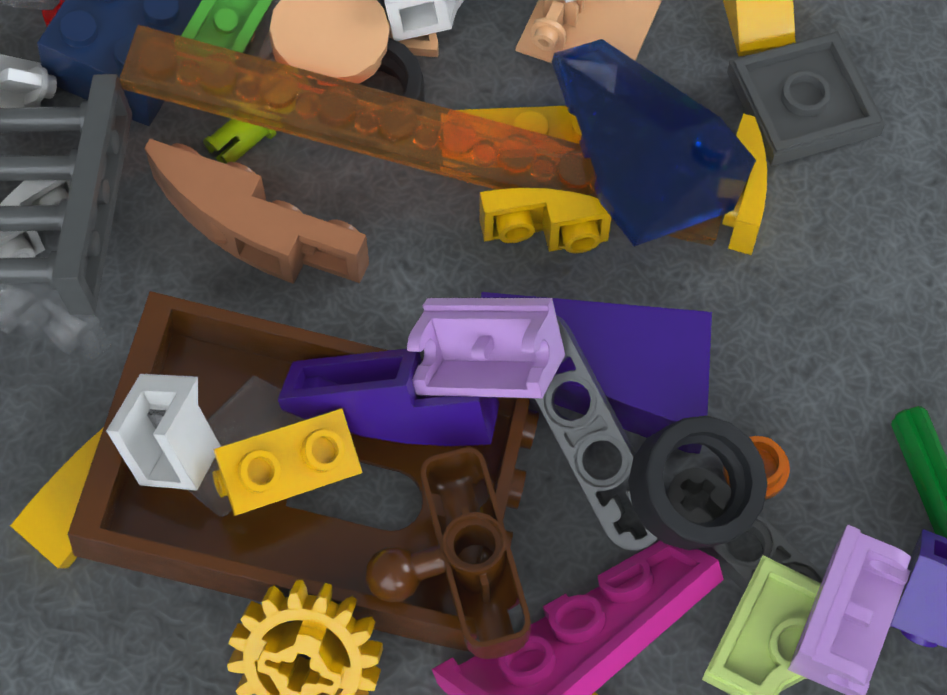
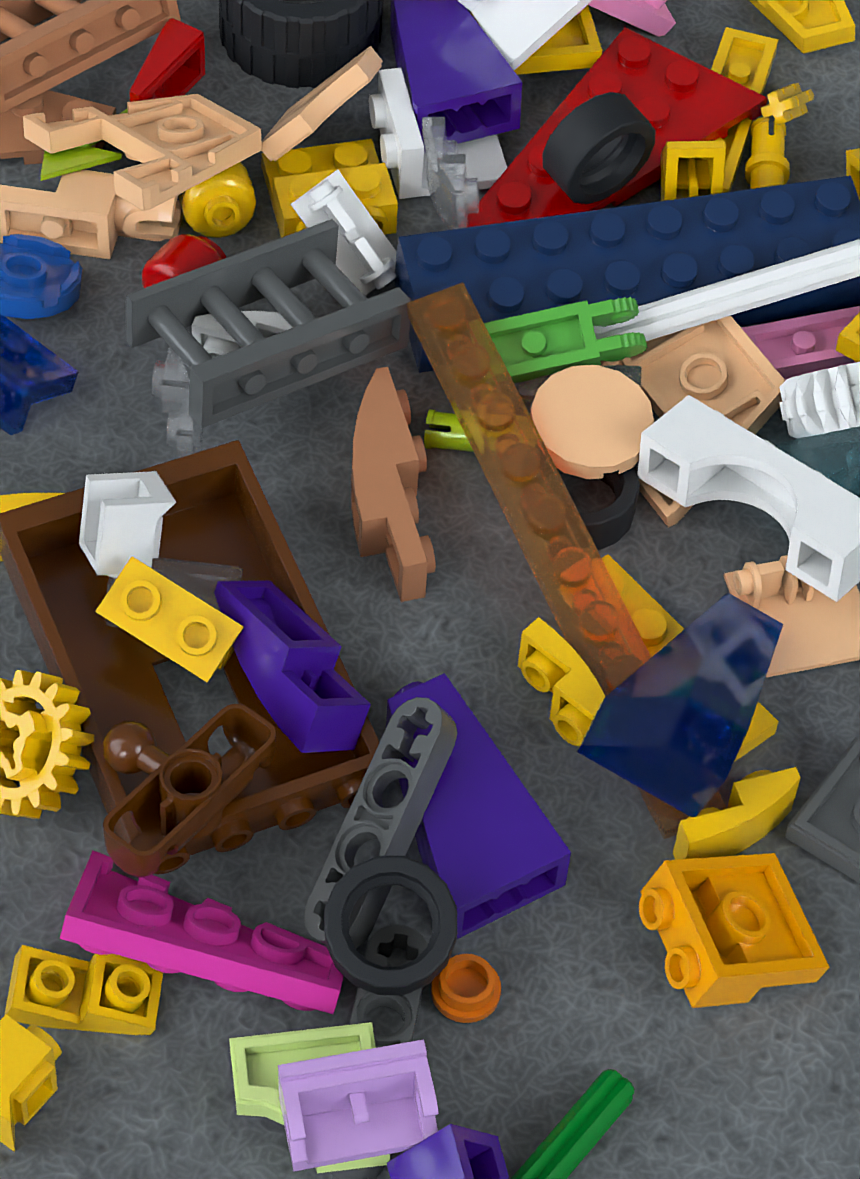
camera: 50 degrees right, 10 degrees down
(486, 347) = (370, 684): lavender hinge -> none
(836, 253) = (730, 928): none -> light orange plate

